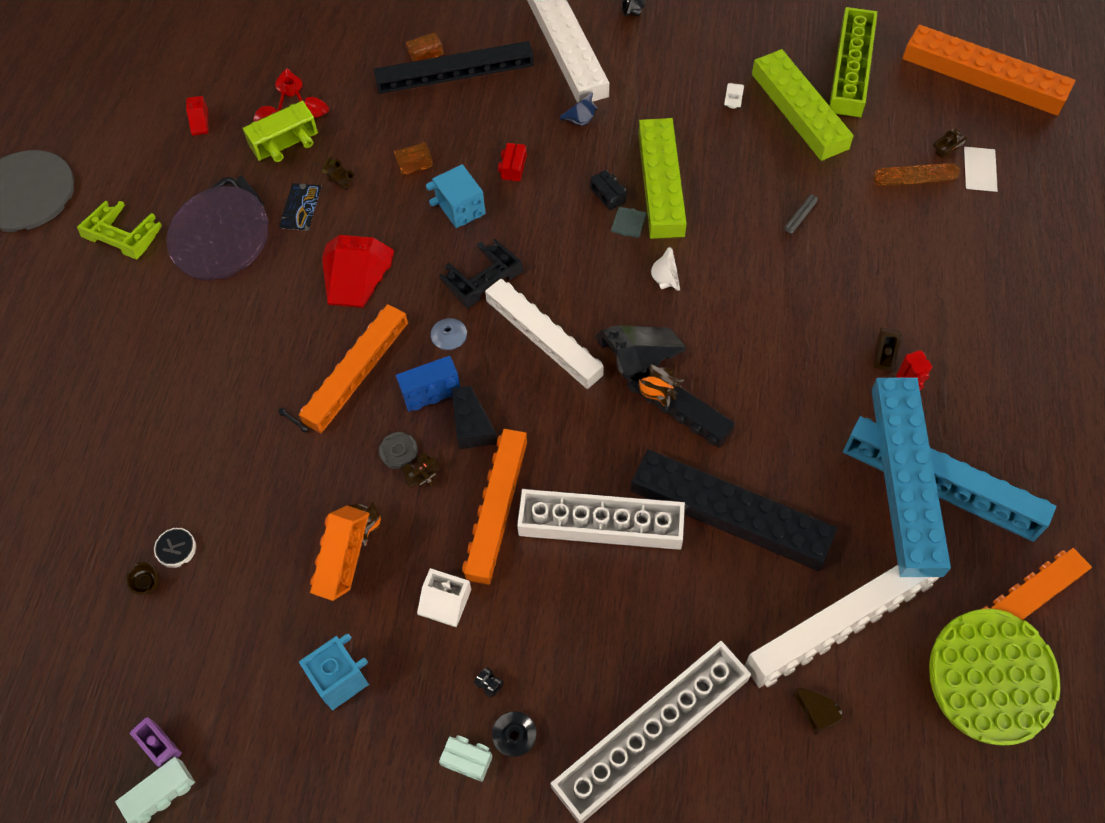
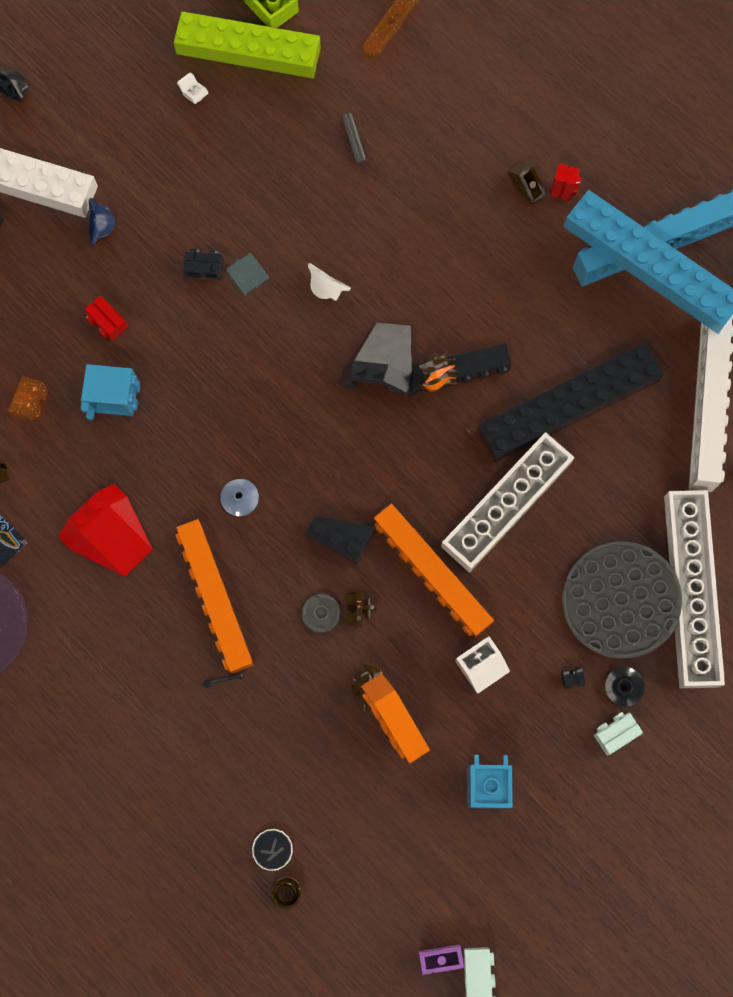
camera: 55 degrees left, 15 degrees up
(428, 383) = (285, 547): blue brick -> none
(469, 291) = (213, 405): black wedge -> none
(545, 333) = (304, 422): white brick -> none
(591, 674) = (622, 600): none -> dark grey tile
(661, 178) = (228, 213): lime brick -> none

